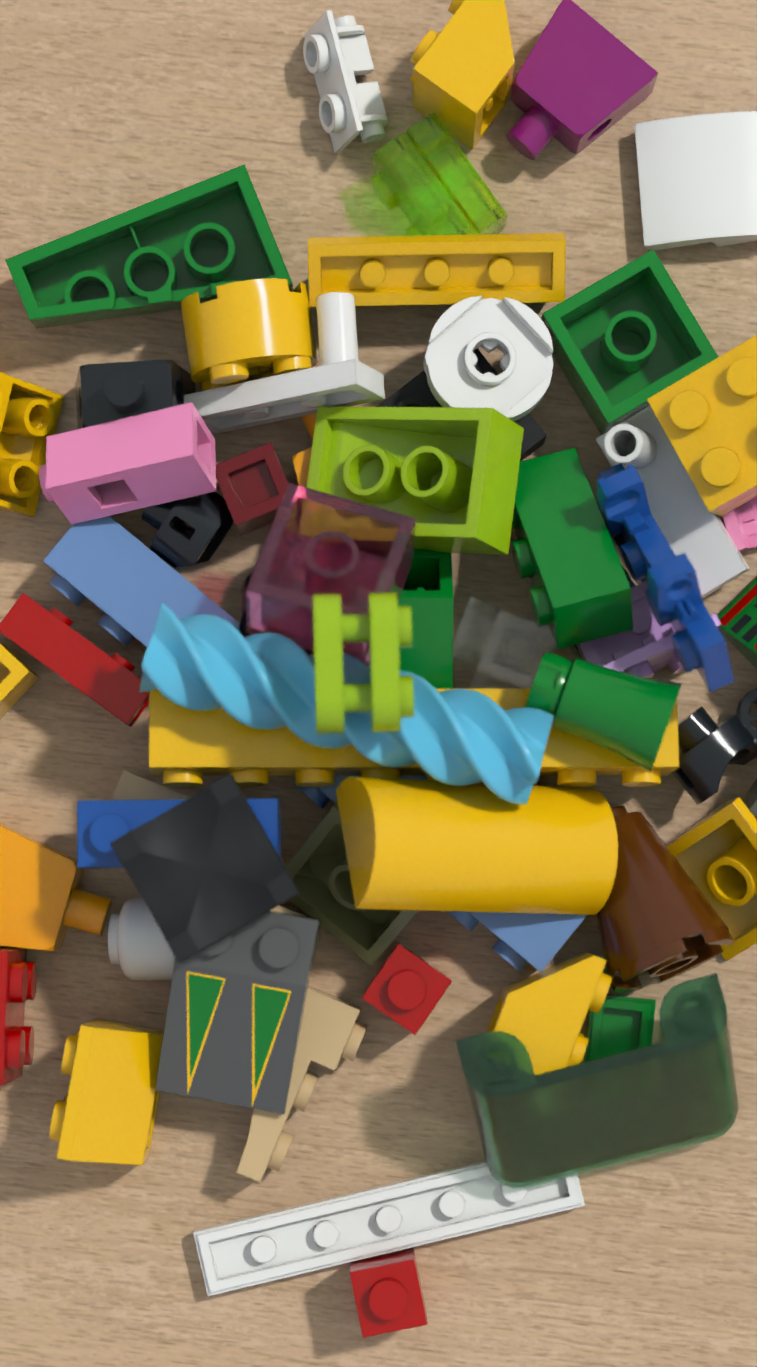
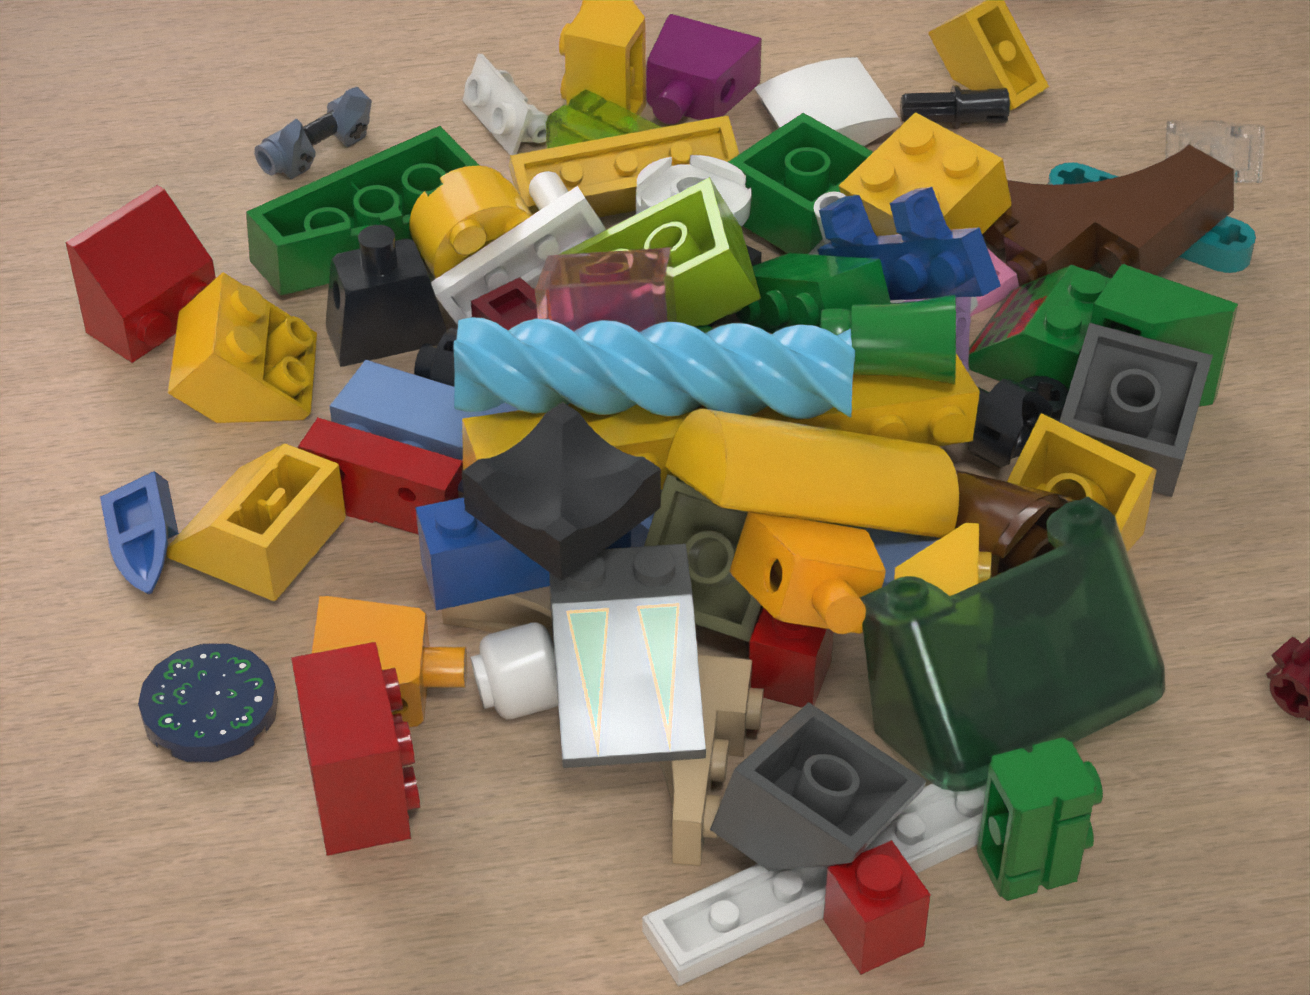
camera: 20 degrees left, 40 degrees down
(89, 100) = (291, 147): none -> sand blue piece
(110, 1093) = (513, 789): yellow slope -> none
(129, 463) = (394, 307): bright pink brick -> none
(370, 1186) = (812, 795): none -> dark grey slope
(386, 630) = (677, 267): lime brick -> none
(433, 974) = (817, 573): none -> light orange torso
(553, 1262) = (1037, 817): none -> green brick

